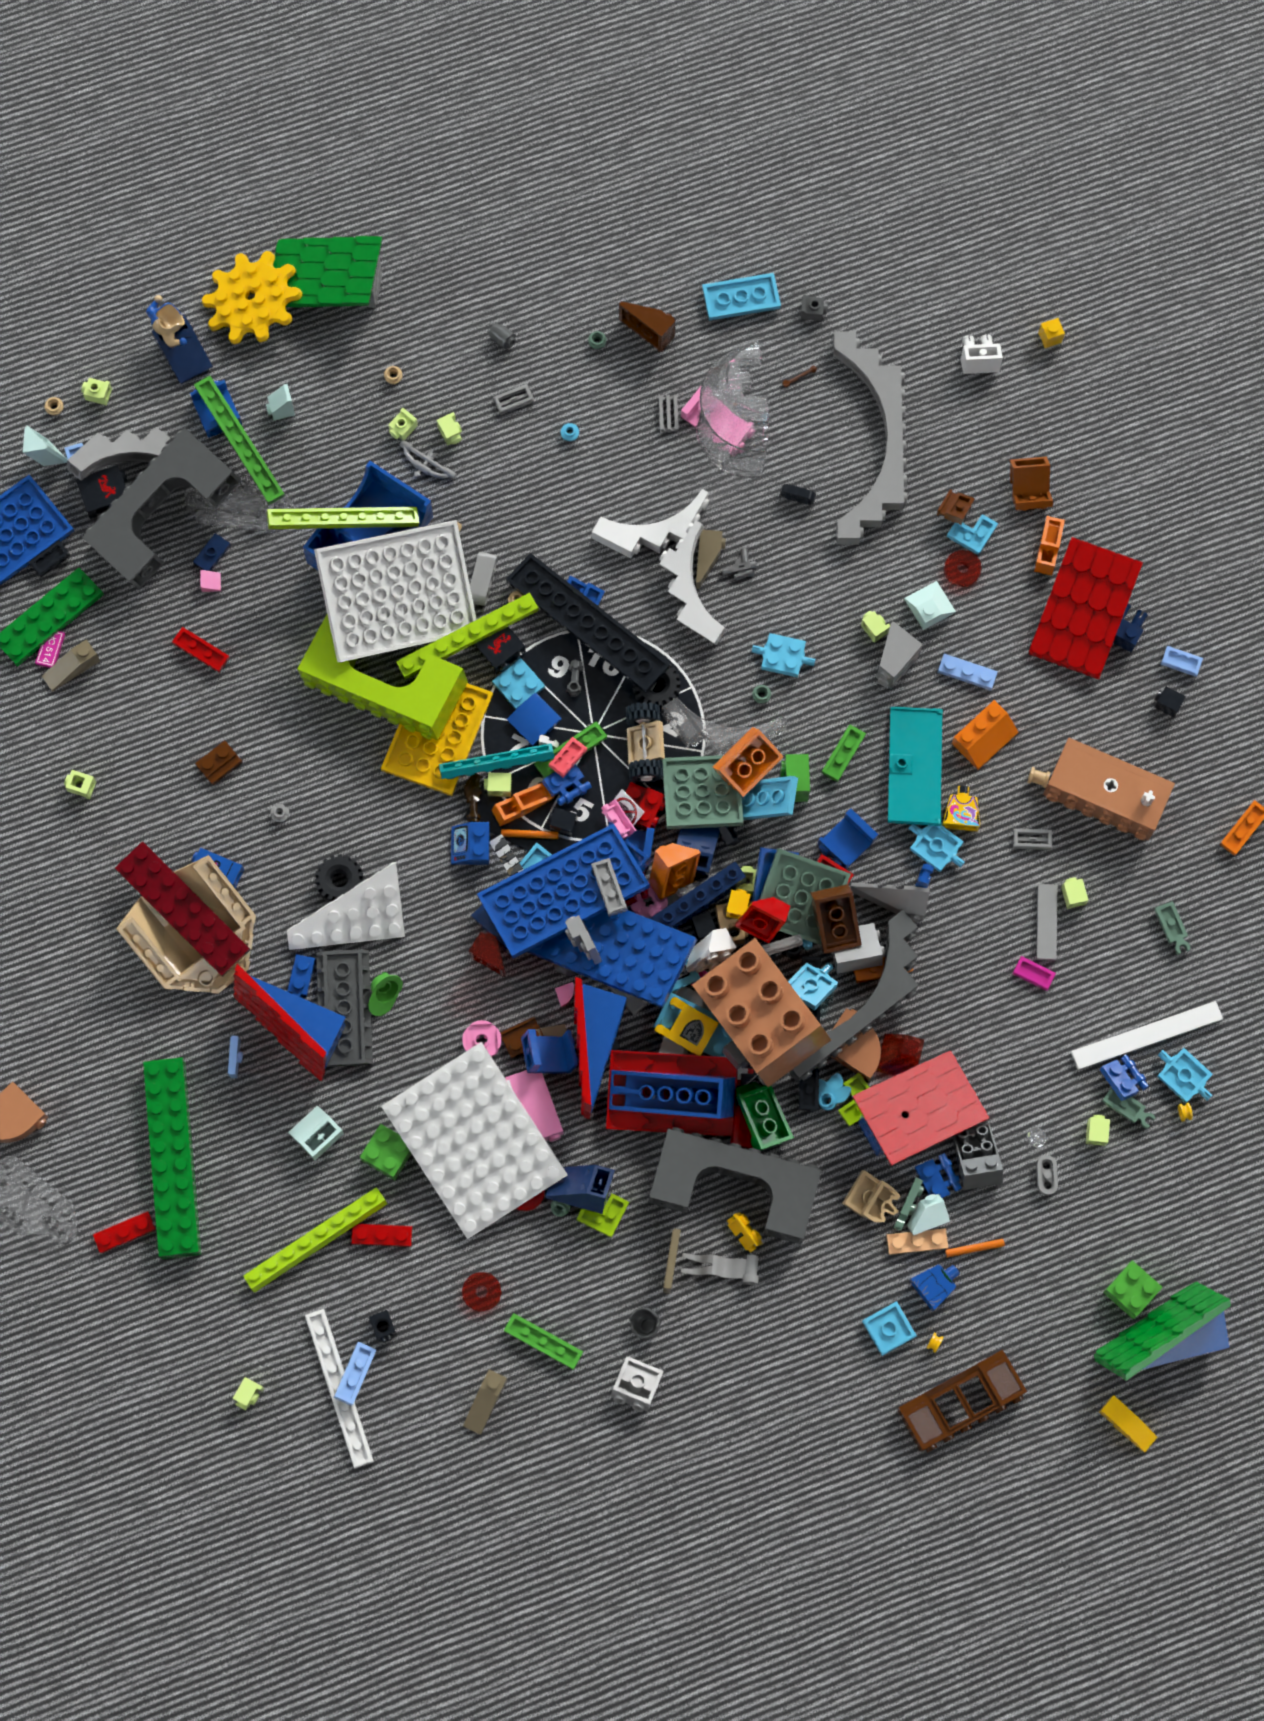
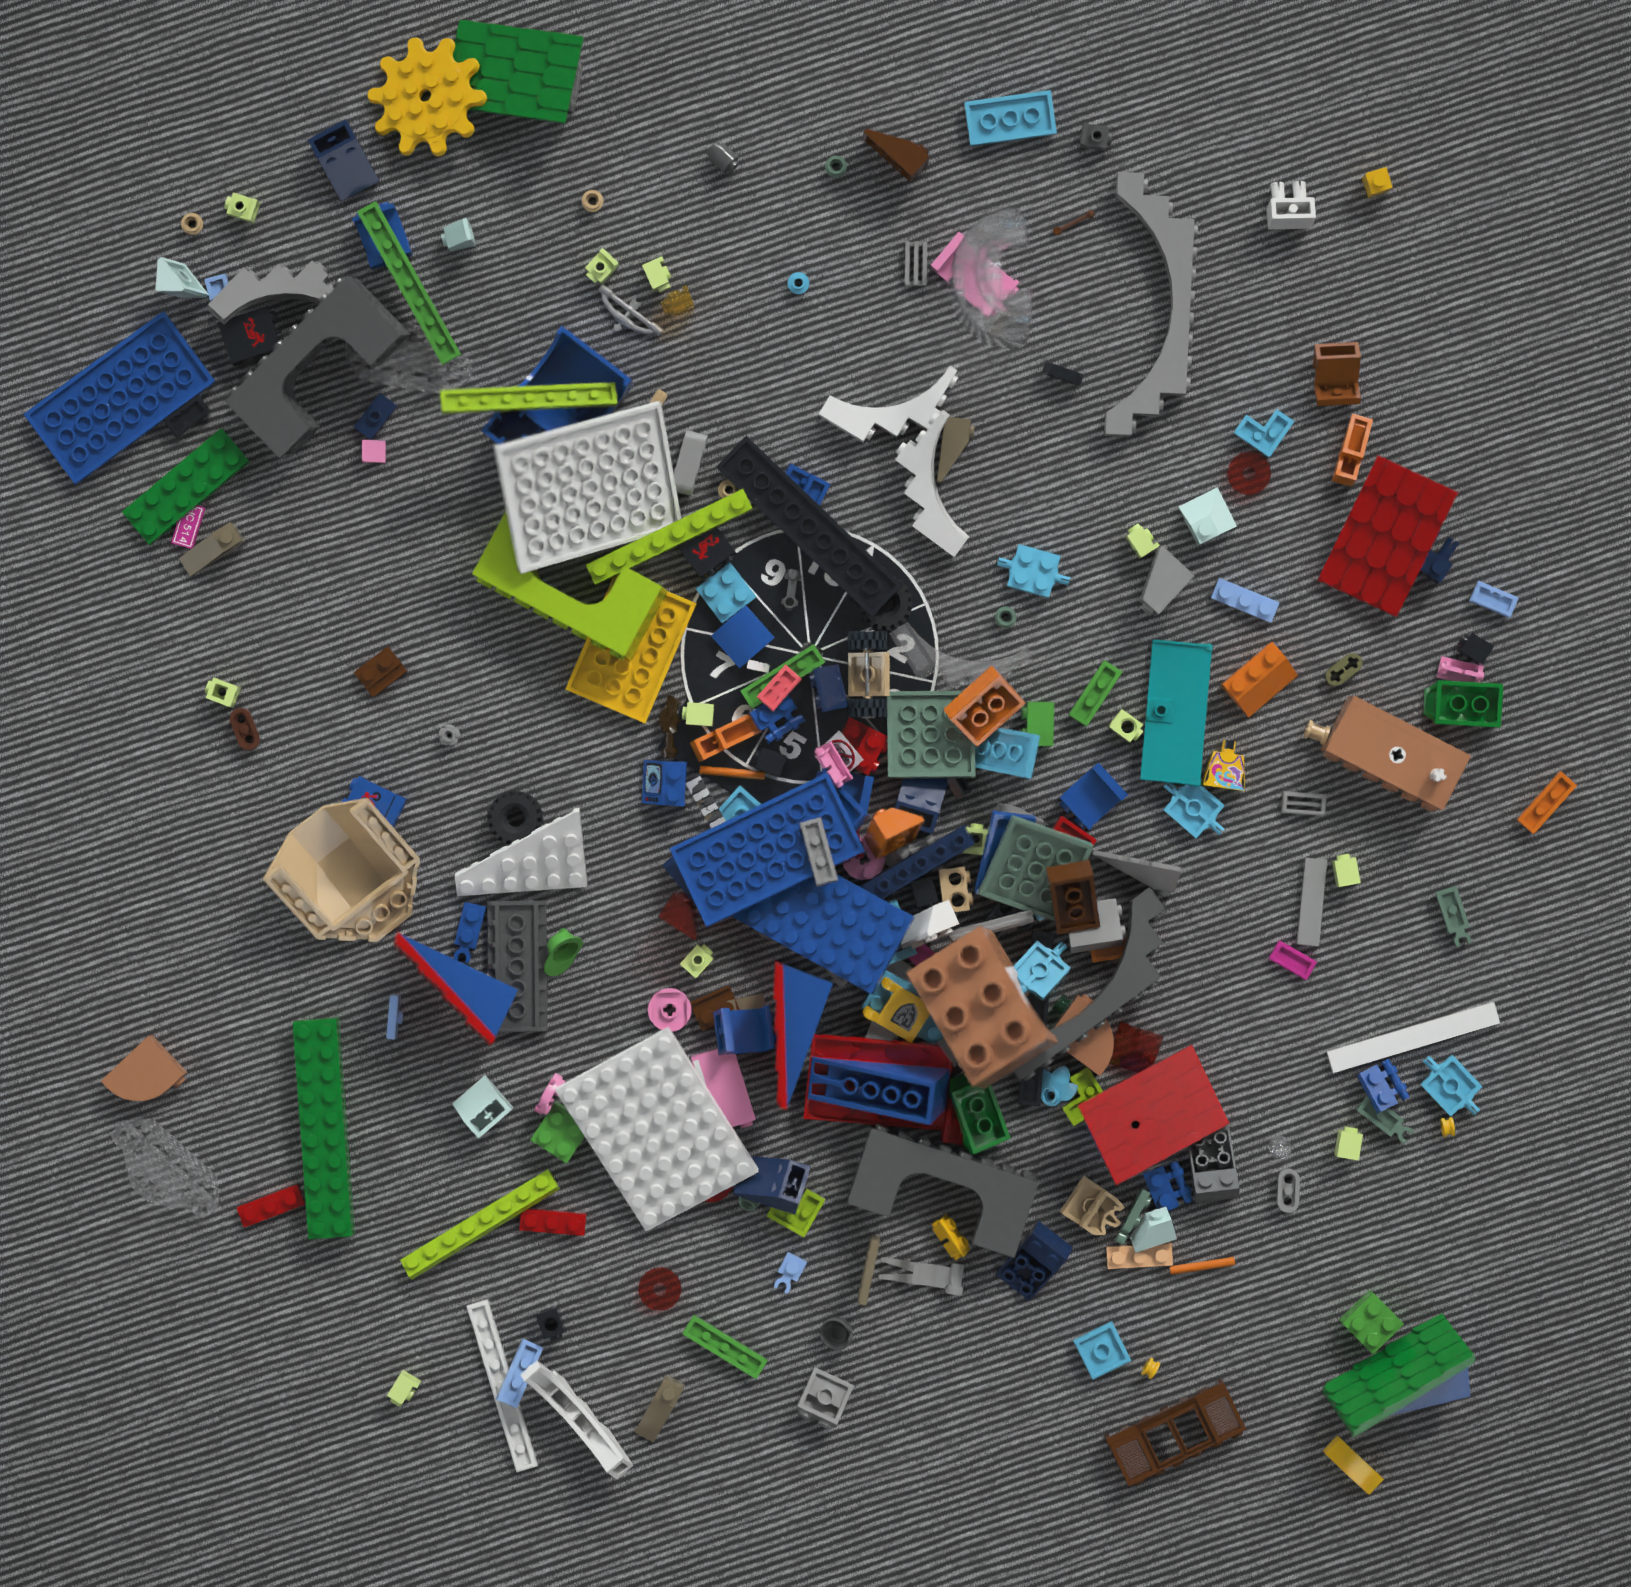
camera: 10 degrees right, 15 degrees up
(99, 816) = (244, 729): none -> copper plate
(166, 321) = (324, 131): tan piece -> none
(182, 909) = (337, 850): dark red plate -> none
(200, 649) = (361, 535): red plate -> none
(374, 1117) = (546, 1099): none -> bright pink plate
(409, 1407) = (580, 1418): none -> white arch
(468, 450) = (678, 302): none -> clear yellow brick
(495, 761) = (697, 689): teal plate -> none
(505, 995) = (697, 960): none -> yellowish green brick
(514, 399) = (751, 231): light grey tile -> none
(565, 993) = (764, 959): bright pink tile -> none
(580, 937) = (783, 907): light grey plate -> none
(600, 1268) = (791, 1269): none -> light blue plate
(611, 755) = (829, 687): none -> dark blue slope
(737, 903) = (964, 873): yellow brick -> none
(742, 566) = (992, 459): flat silver piece -> none
(764, 918) = (993, 895): red slope -> none
(821, 1250) = (1035, 1261): none -> dark blue slope
(832, 1019) = (1061, 1004): none -> clear green bush
(871, 771) = (1116, 724): none -> yellowish green brick
(924, 876) = (1174, 853): blue plate -> none
(935, 1284) = (1155, 1305): blue torso -> none
(955, 507) = (1246, 399): reddish brown plate -> none
(1060, 728) = (1340, 666): none -> olive beam
(1158, 722) = (1459, 670): none -> bright pink hinge
(1165, 746) = (1464, 703): none -> green slope

